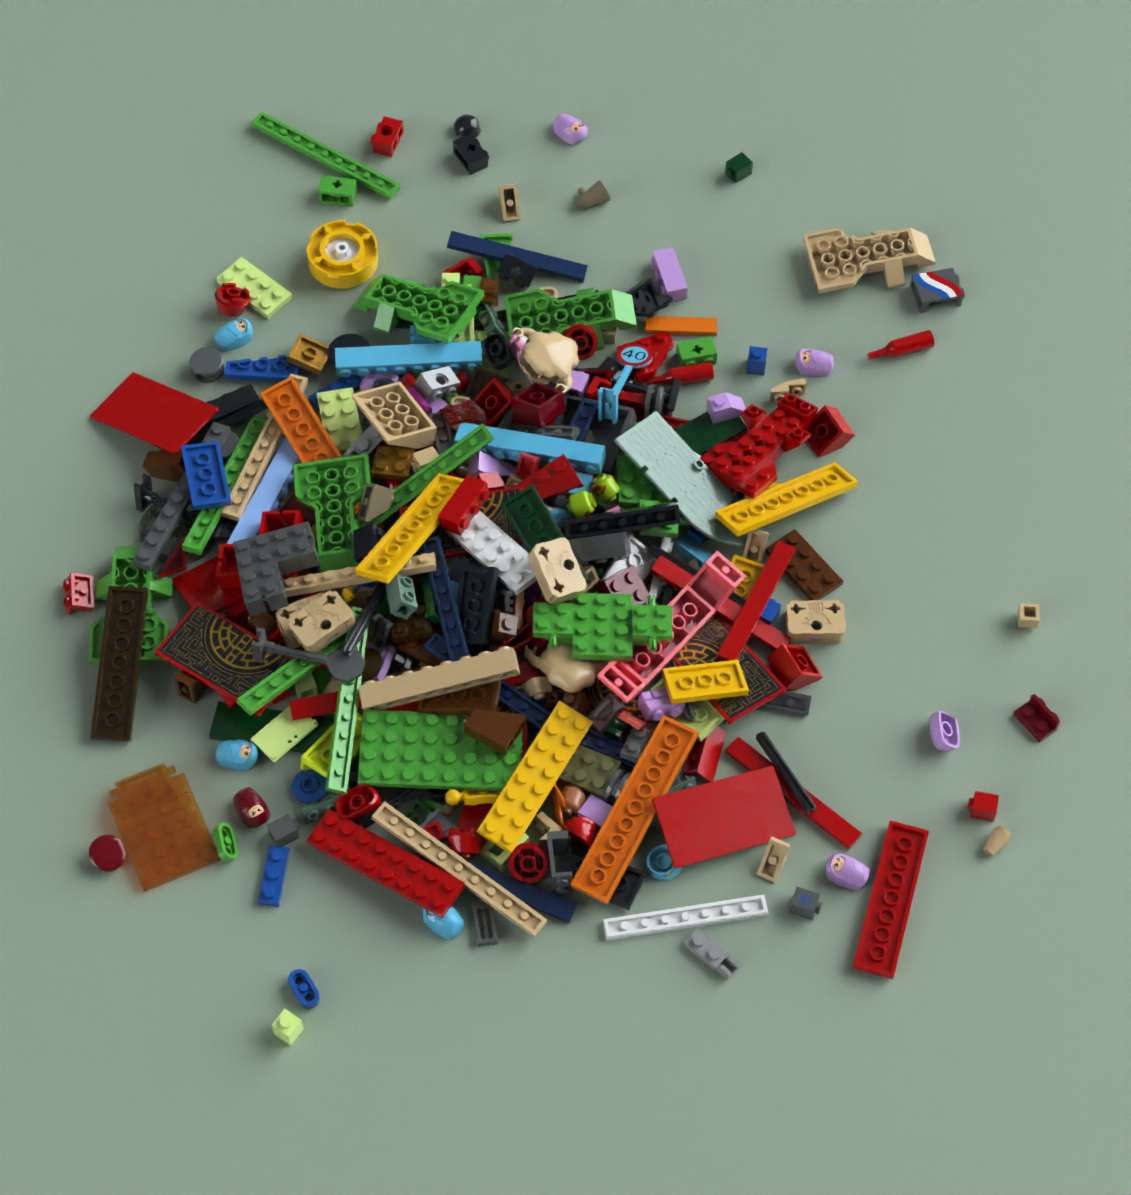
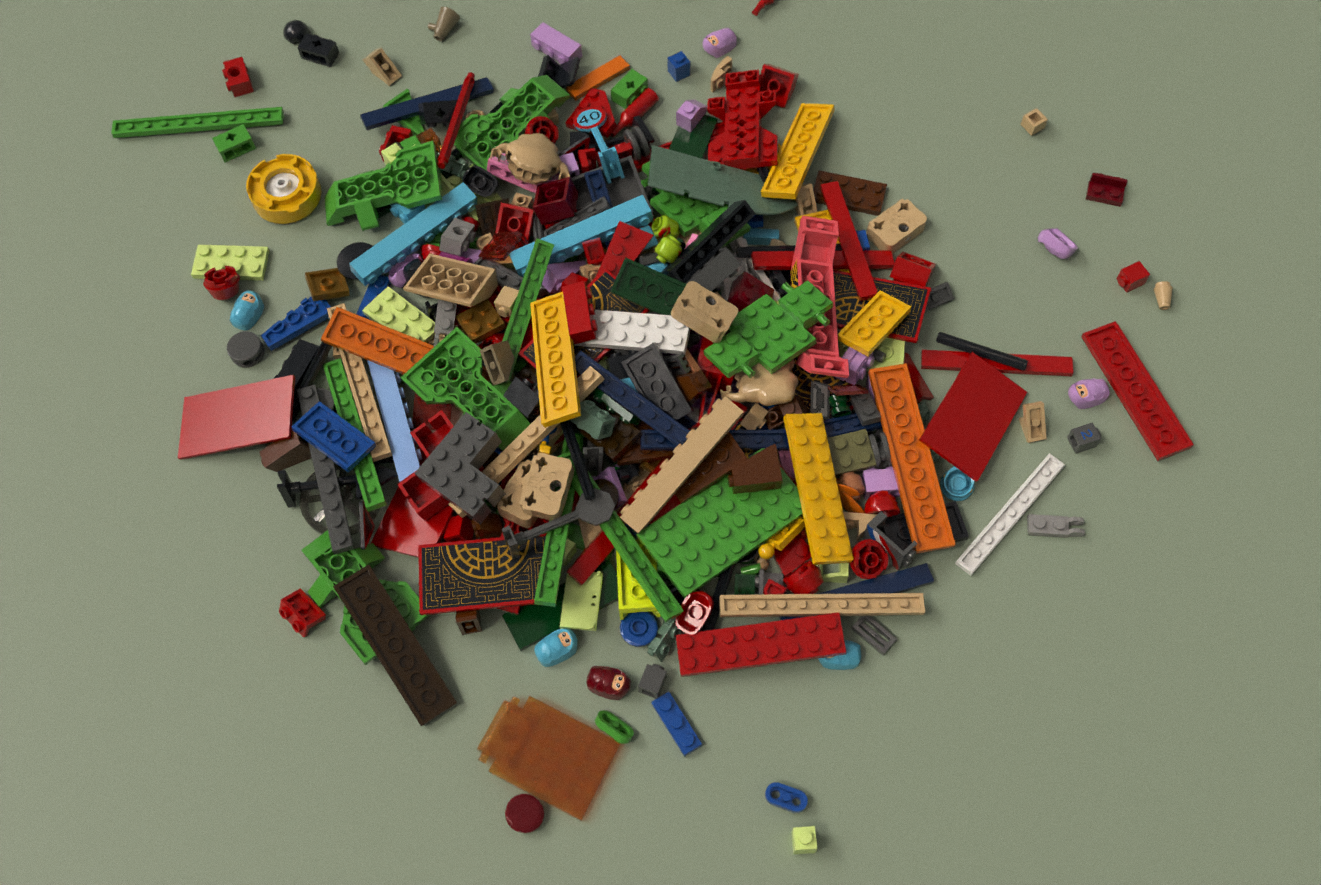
camera: 35 degrees left, 5 degrees up
(522, 285) = (456, 120): none -> red piece

